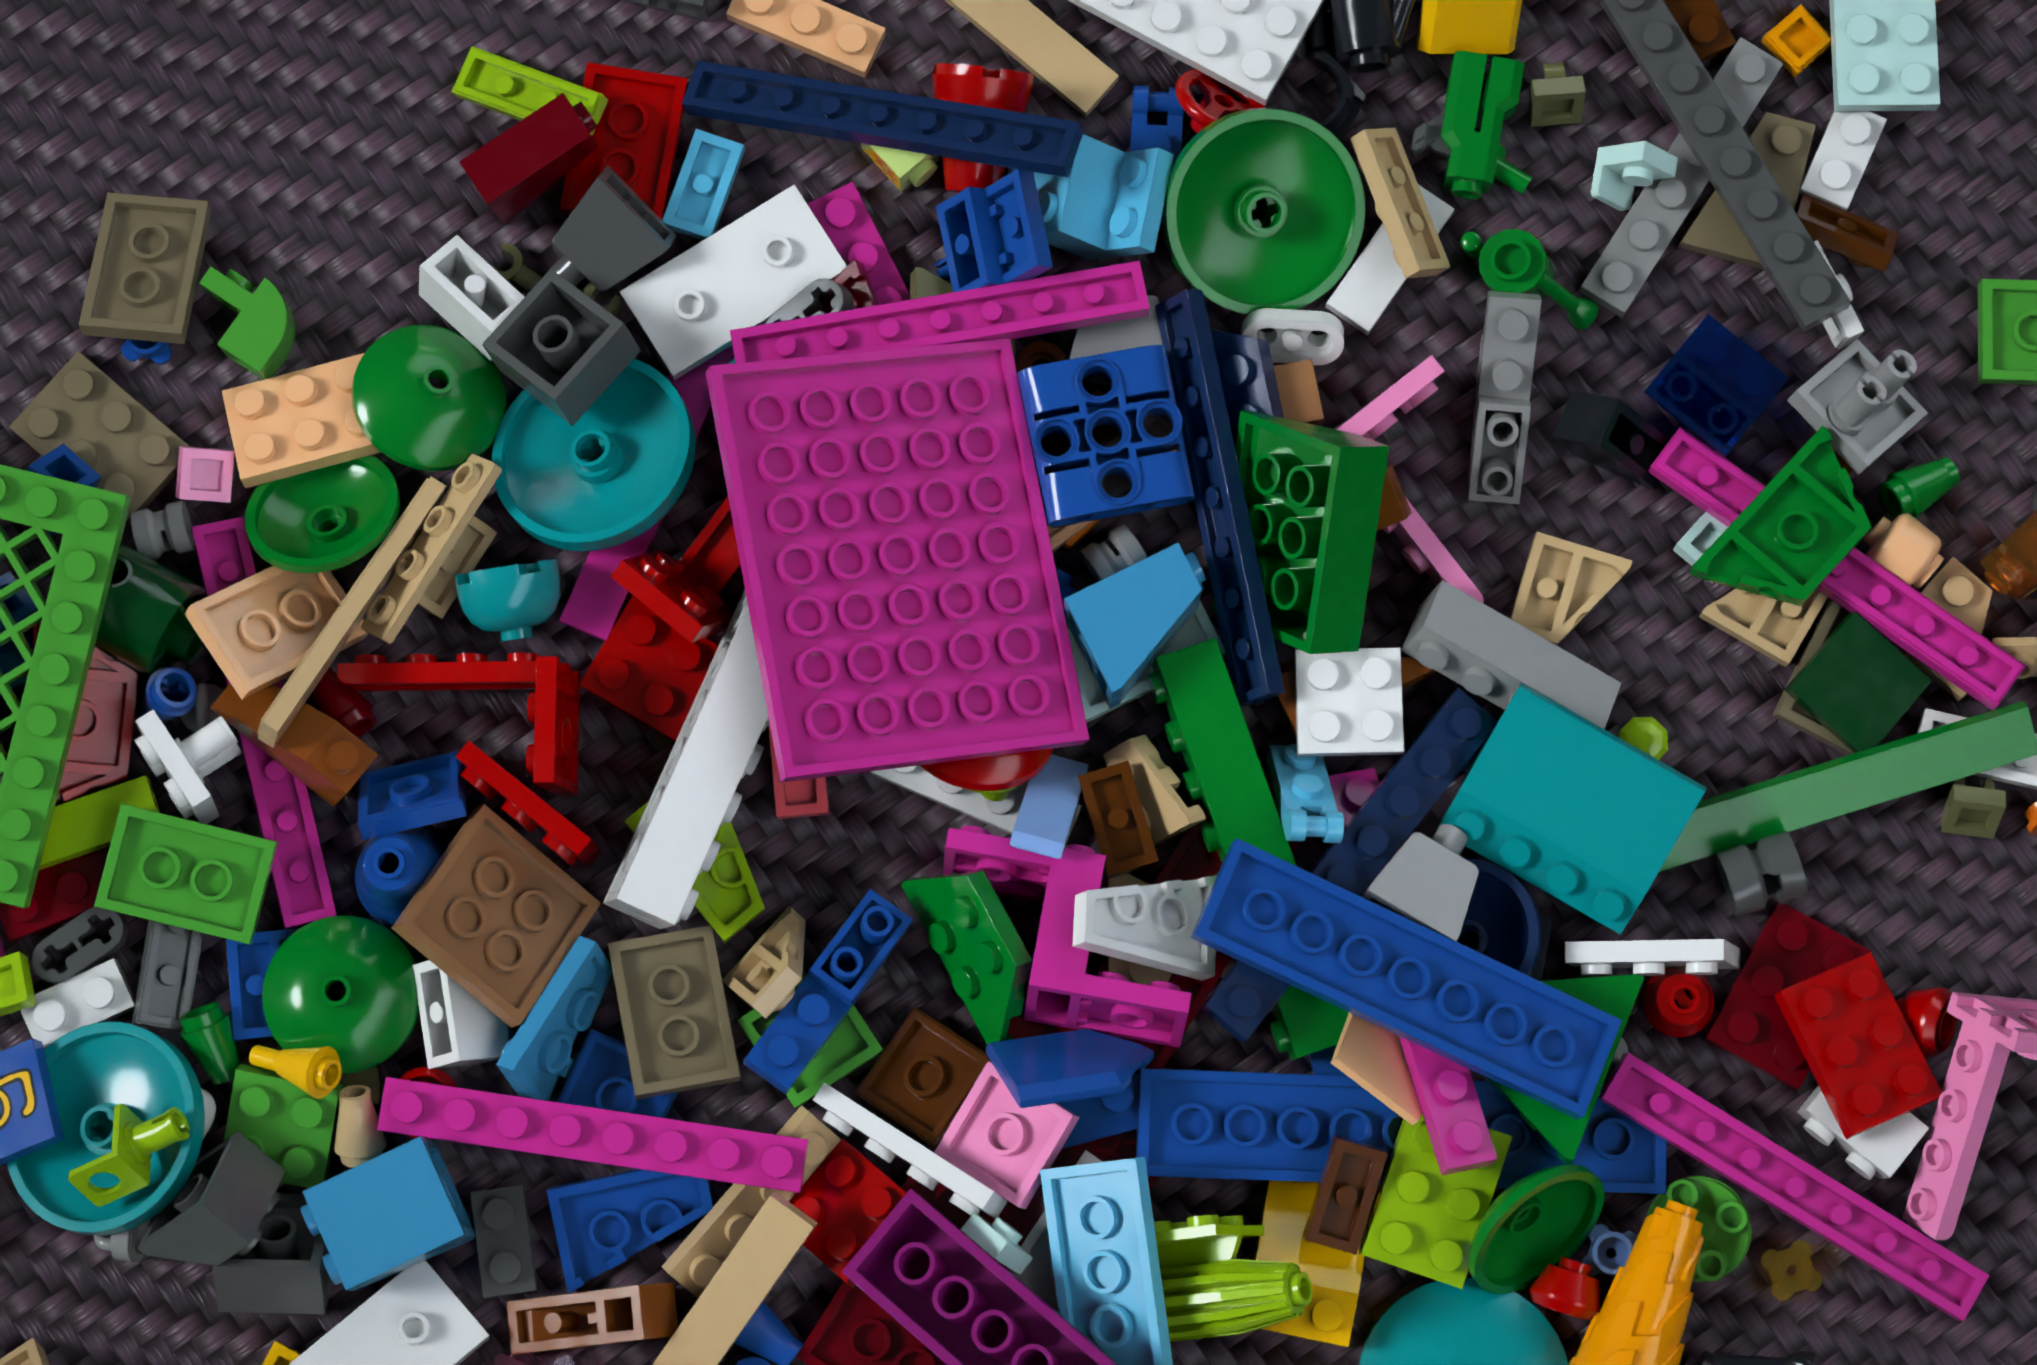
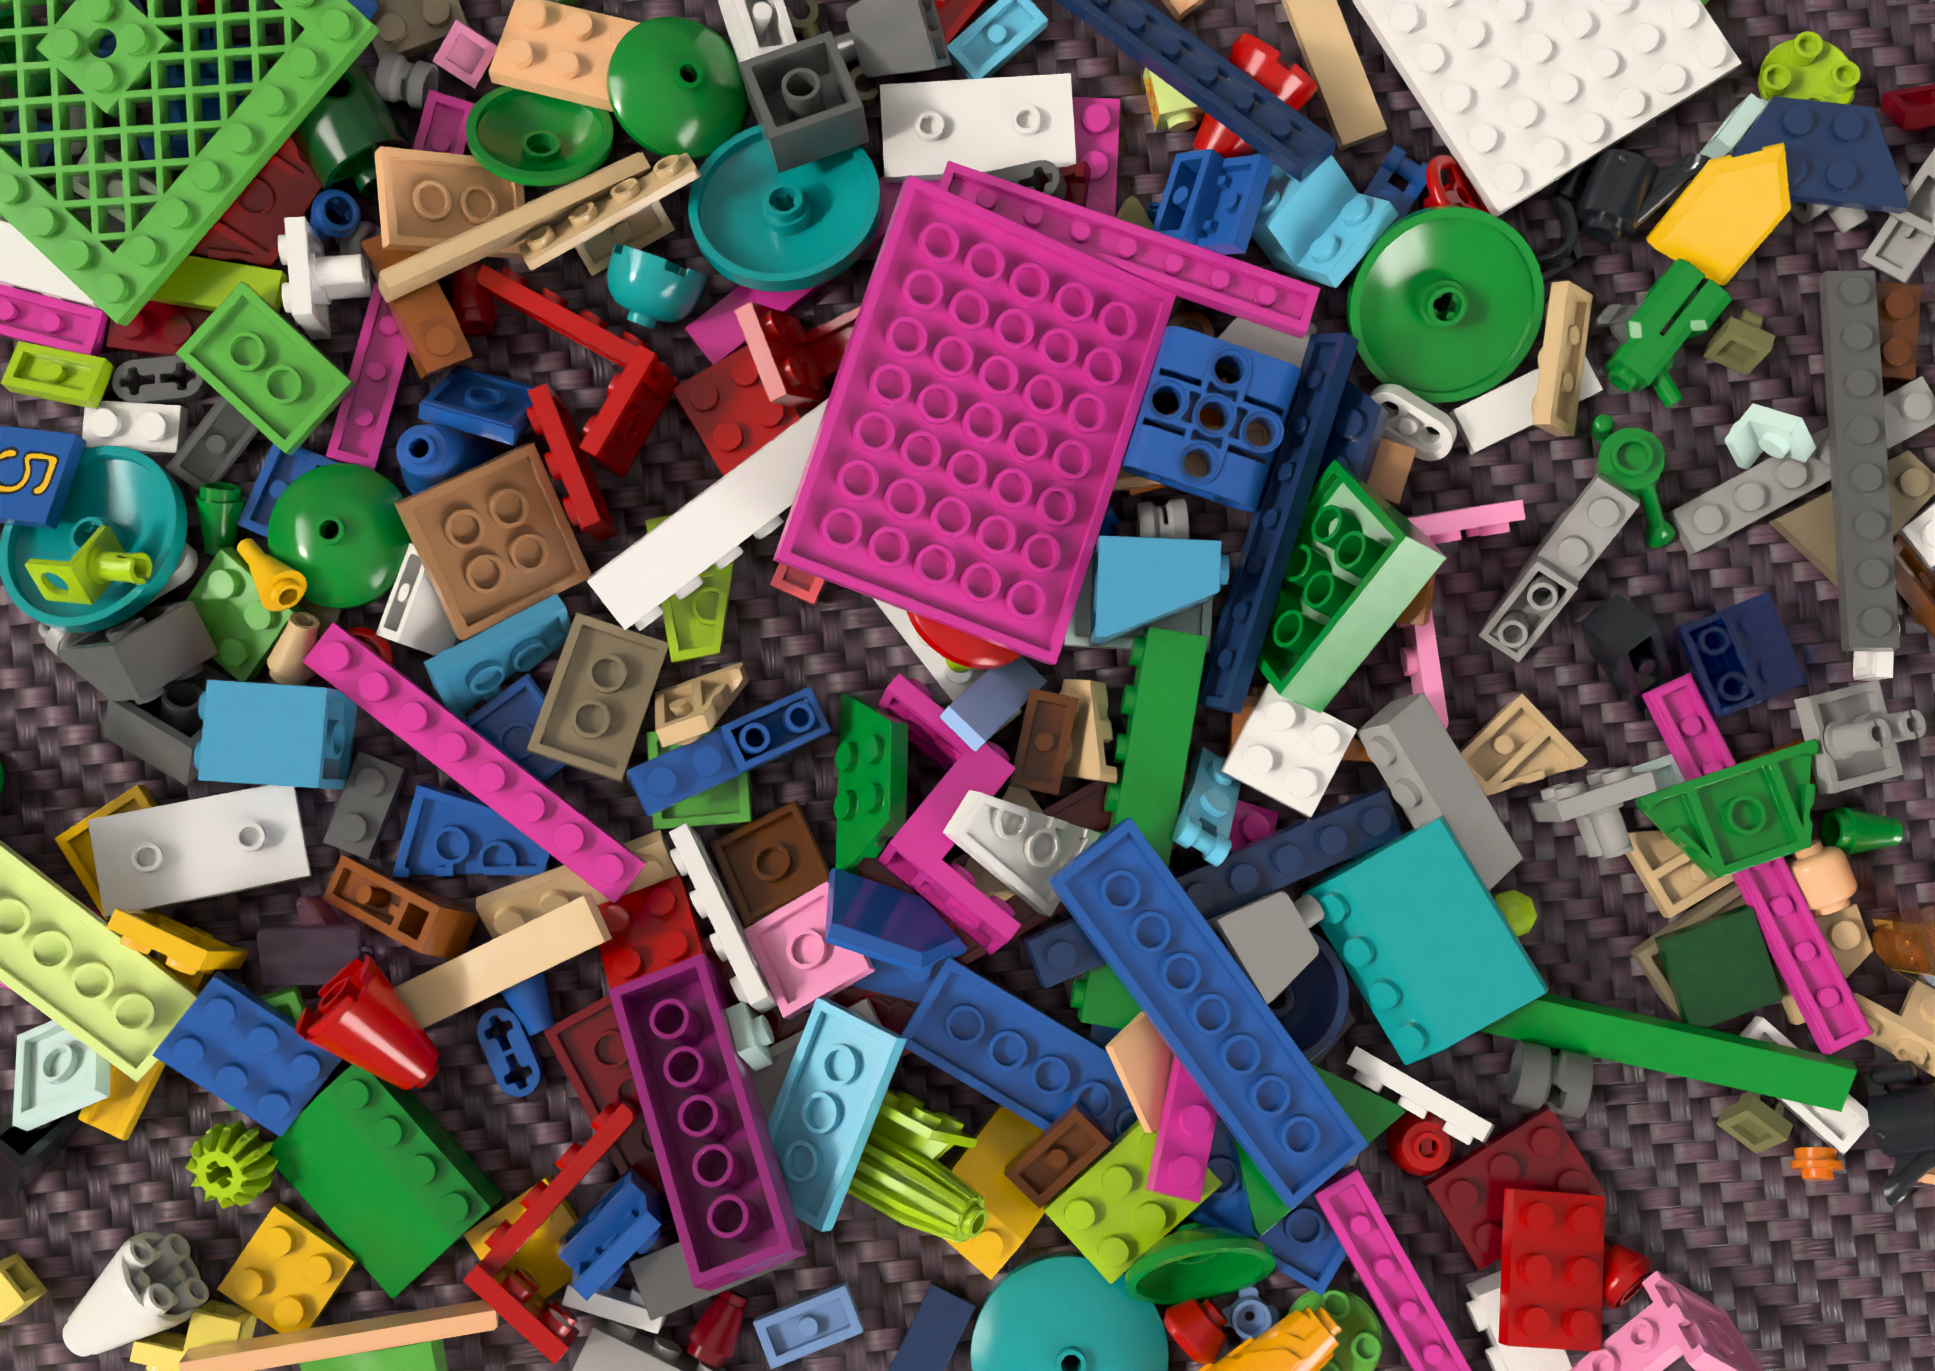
camera: 30 degrees right, 5 degrees up
(1660, 599) = (1596, 807): none -> light grey plate

